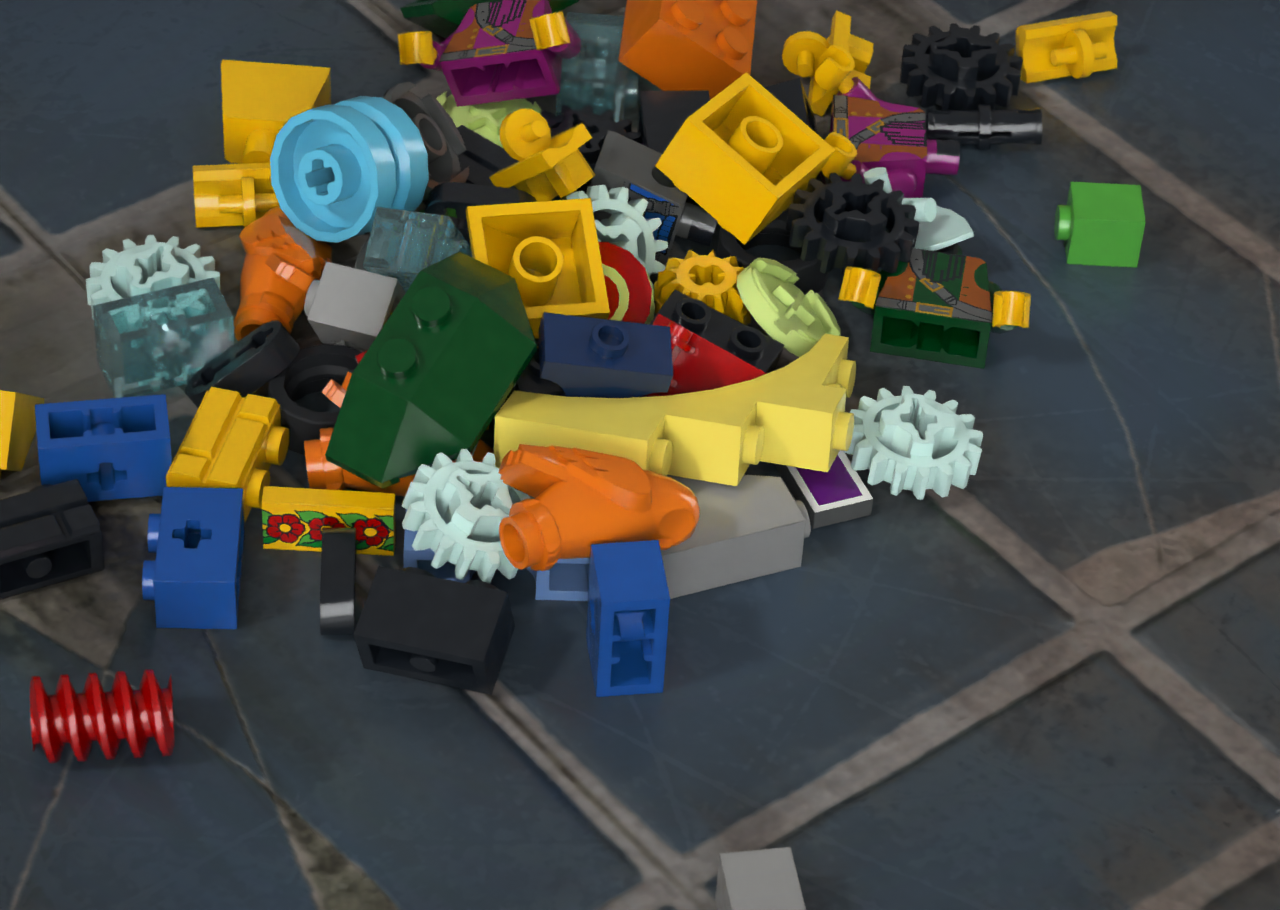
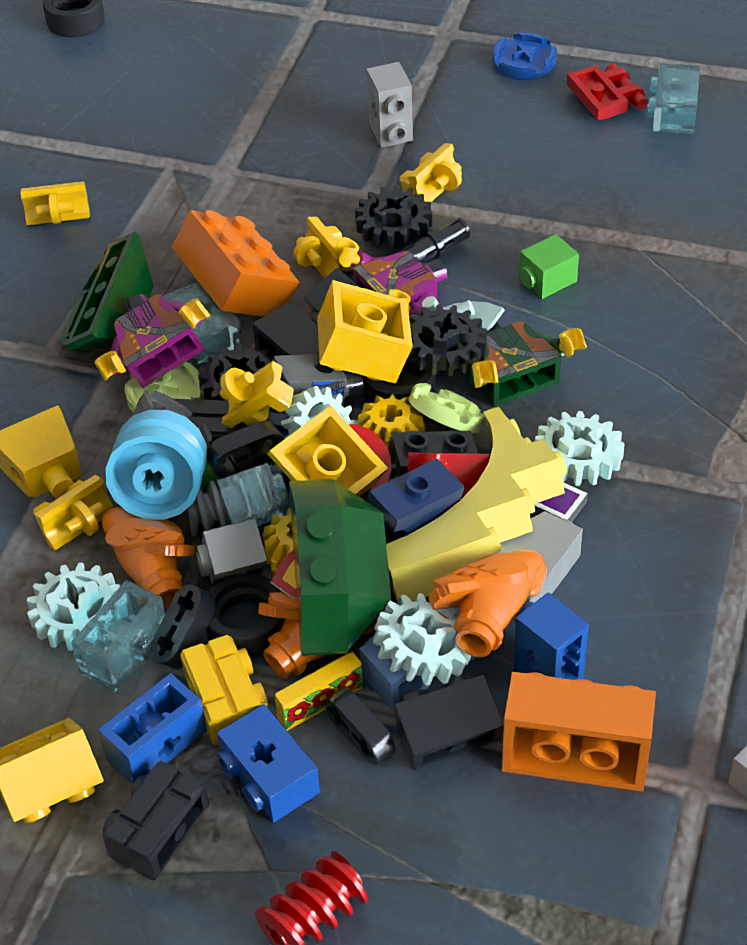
camera: 30 degrees left, 5 degrees up
(566, 719) = (578, 730): none -> orange brick

